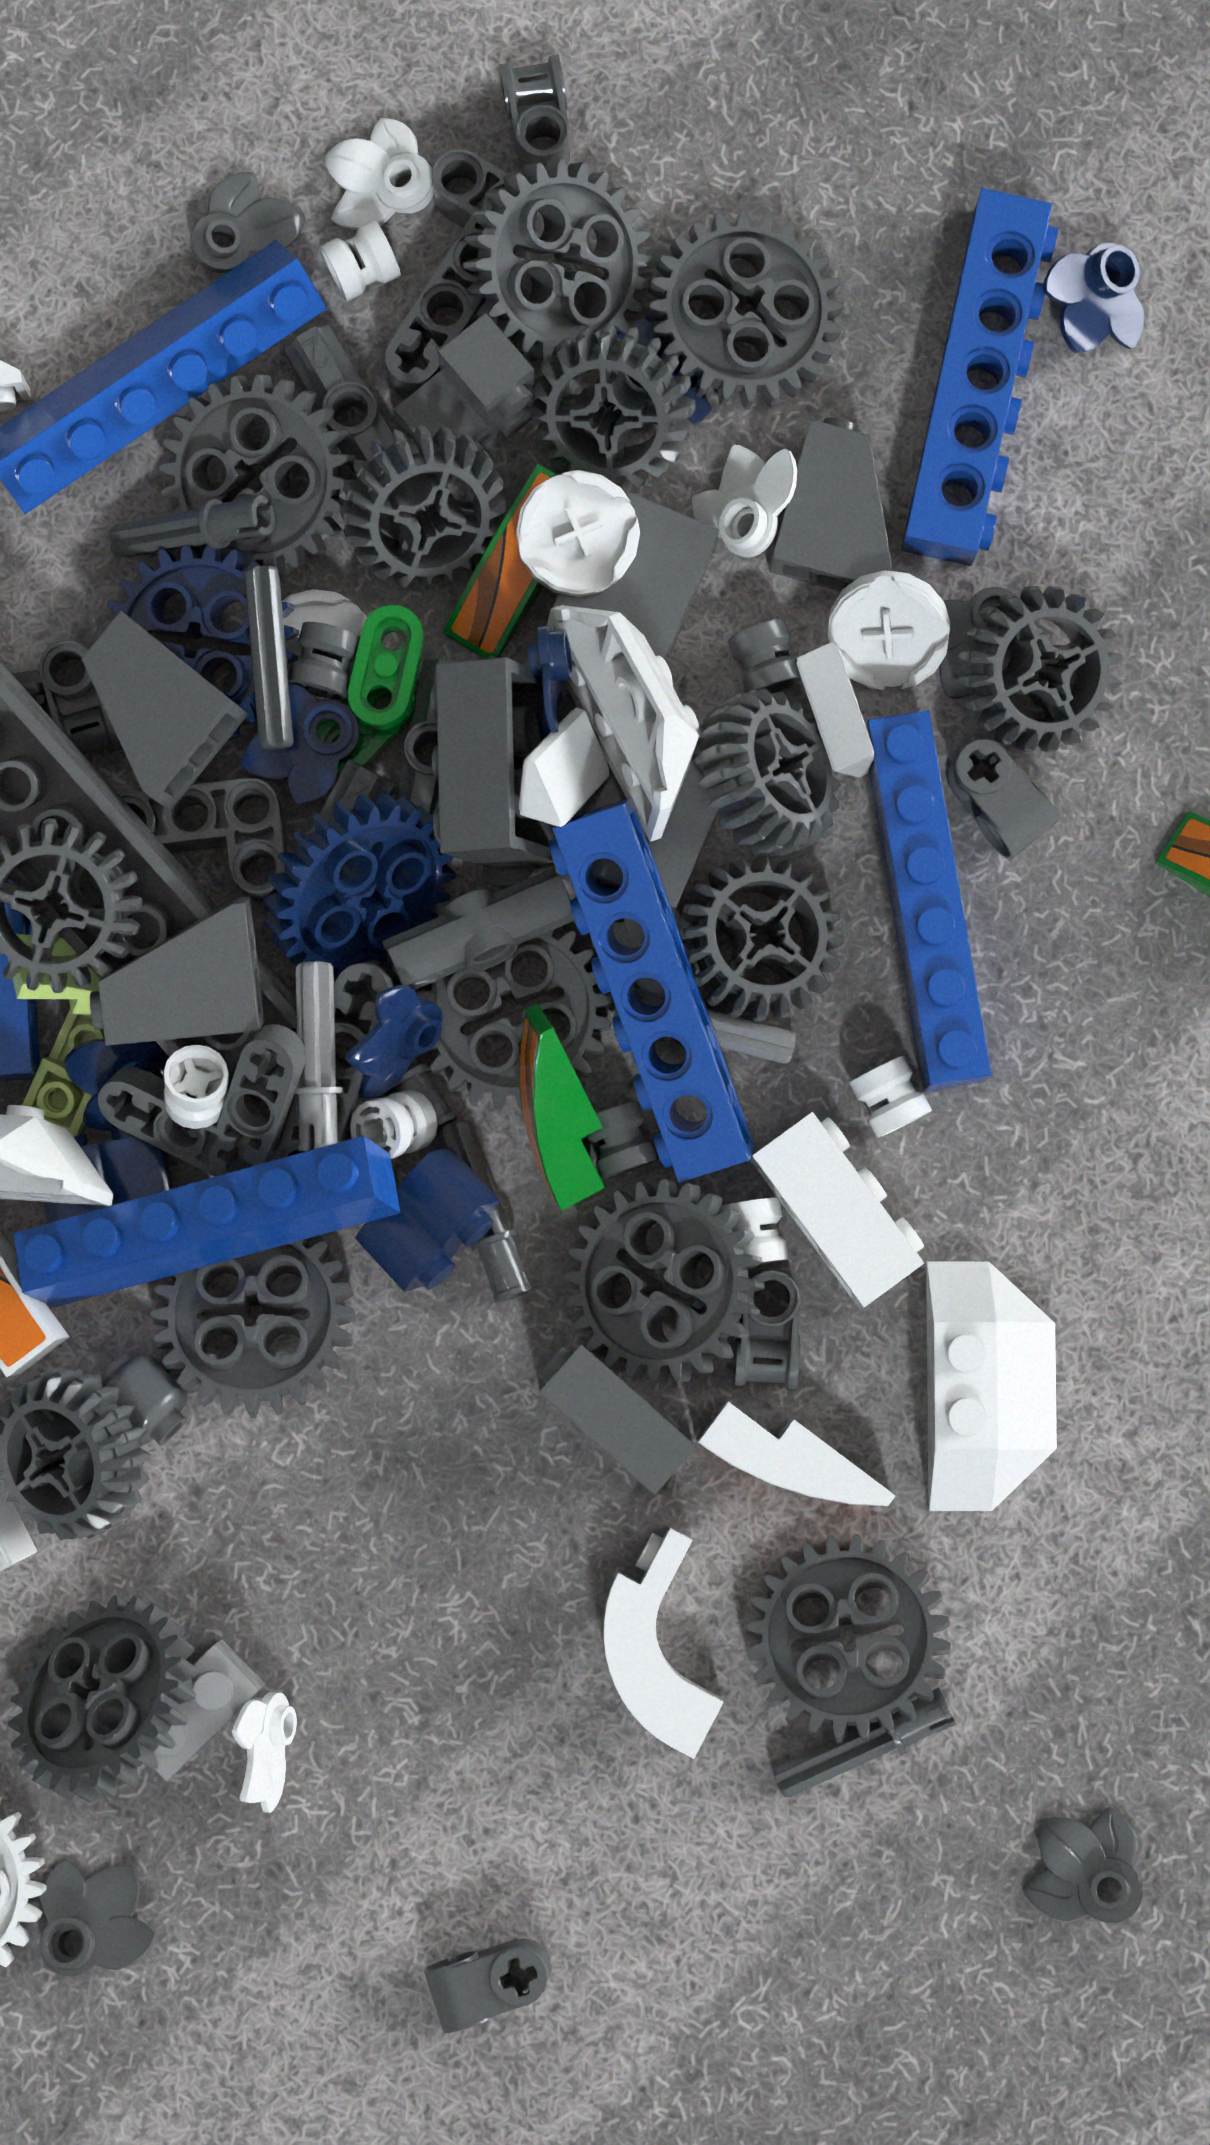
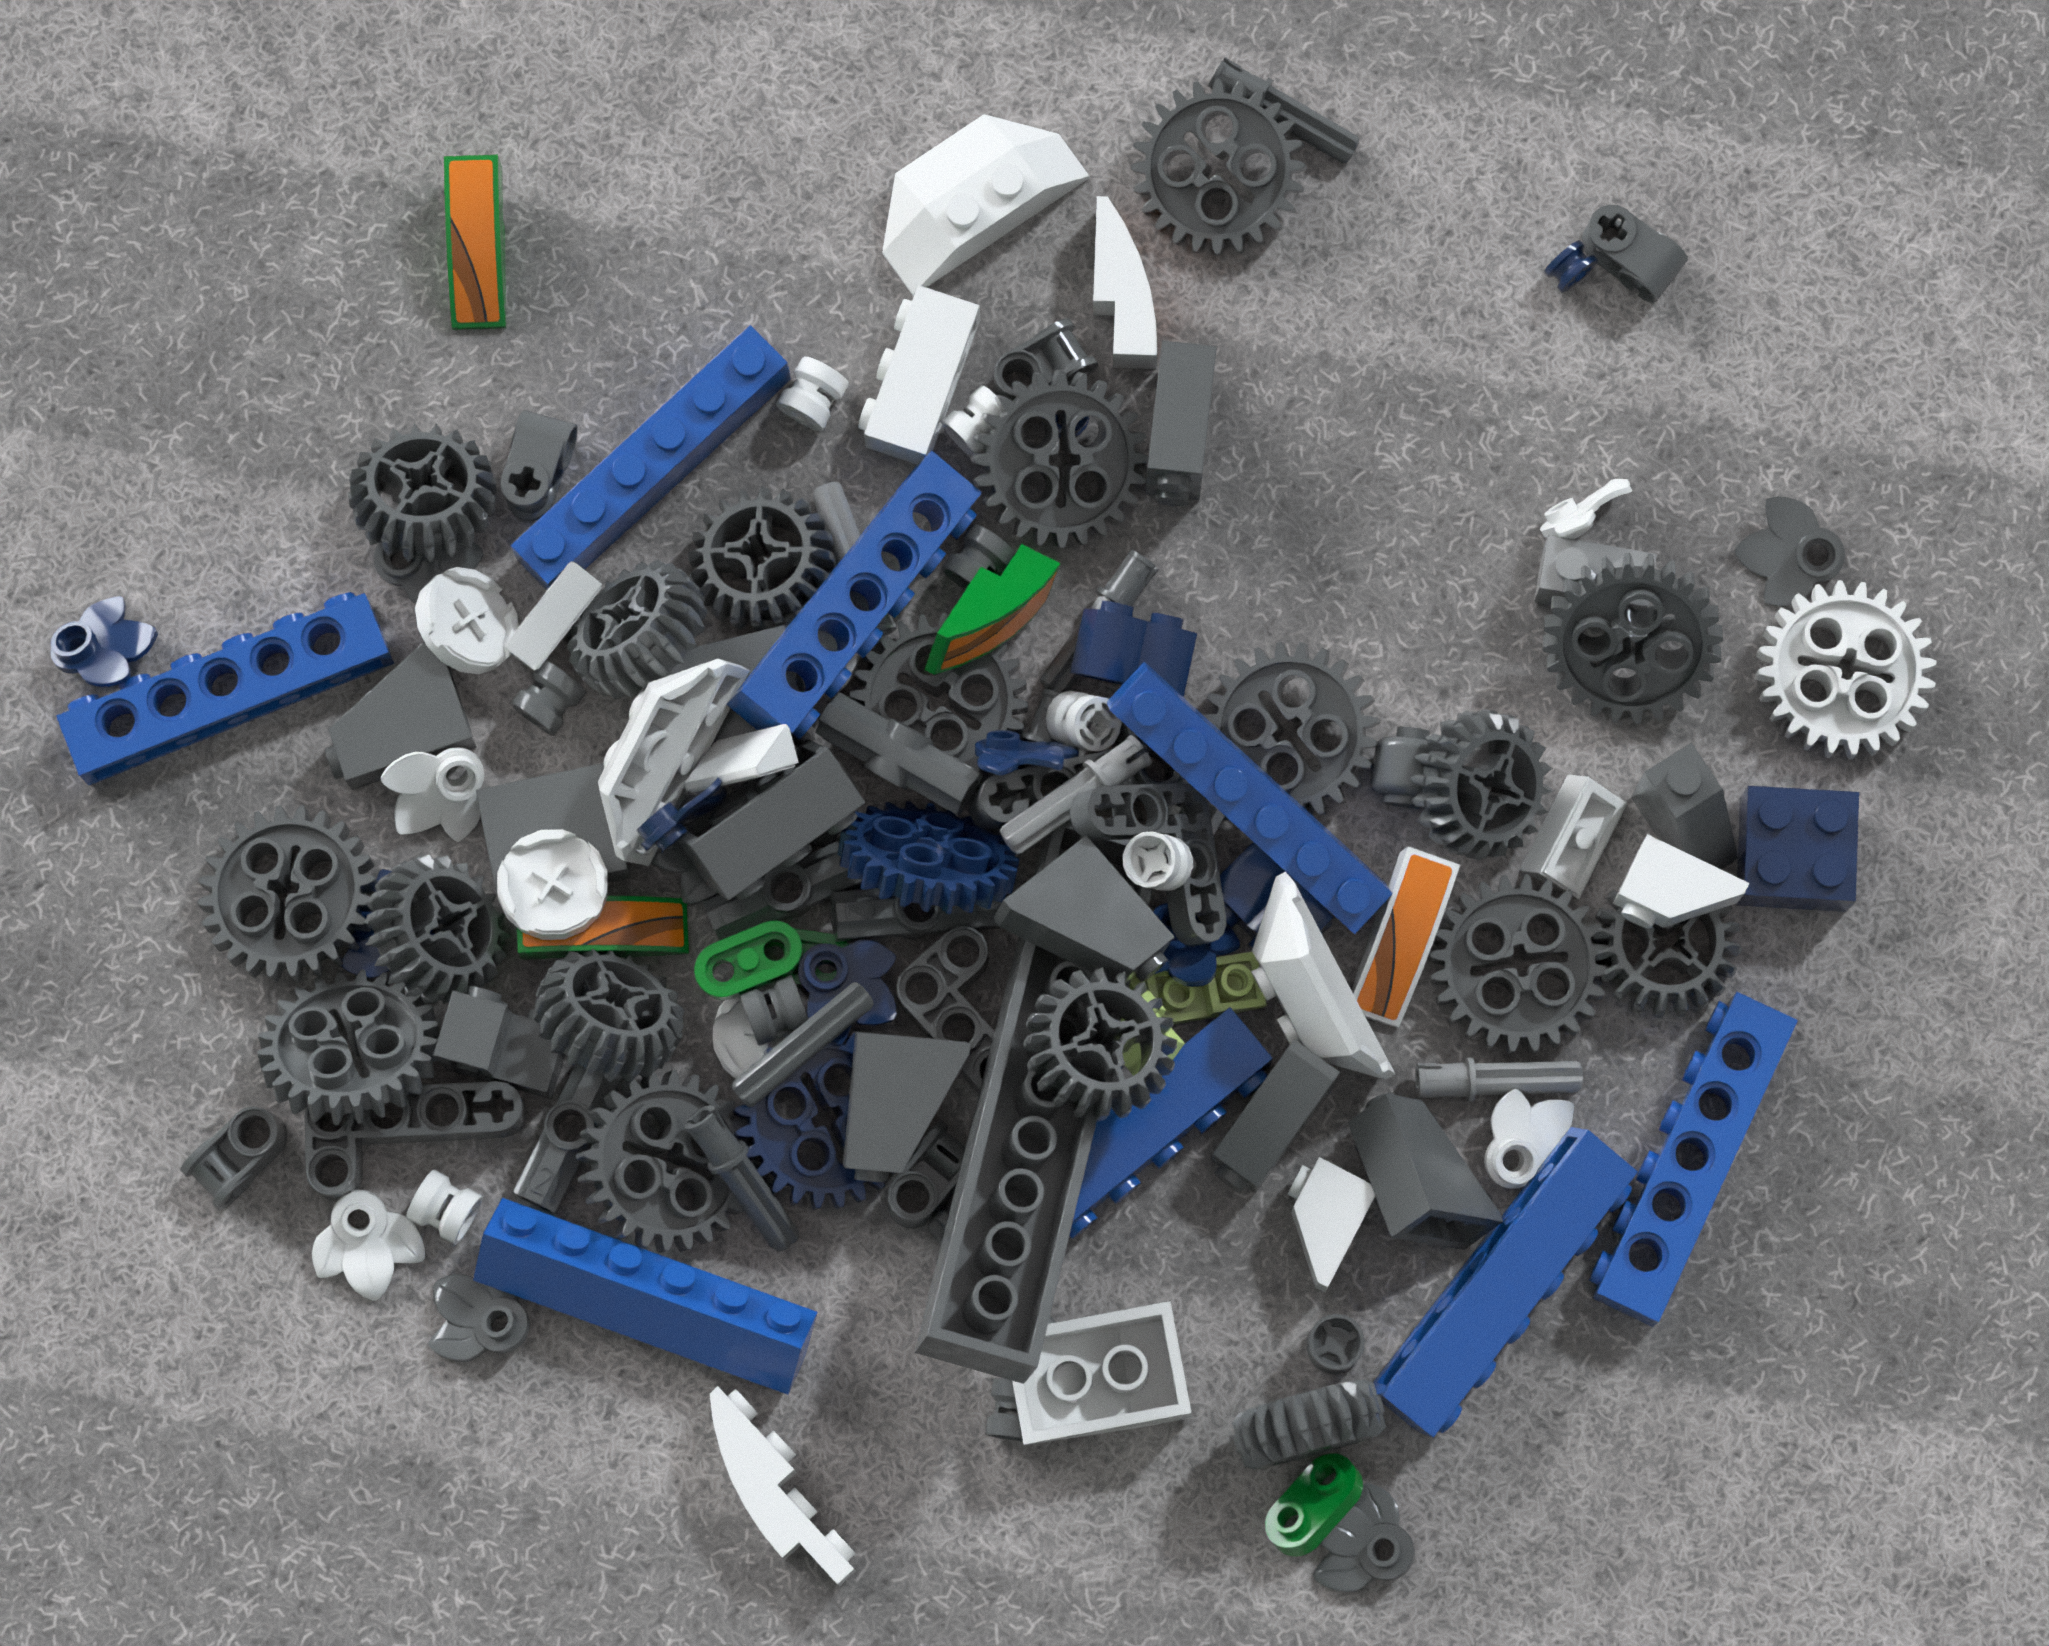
camera: 120 degrees left, 5 degrees down
(515, 1912) = (1570, 266): none -> dark blue bush
(648, 1685) = (1334, 308): white arch -> none

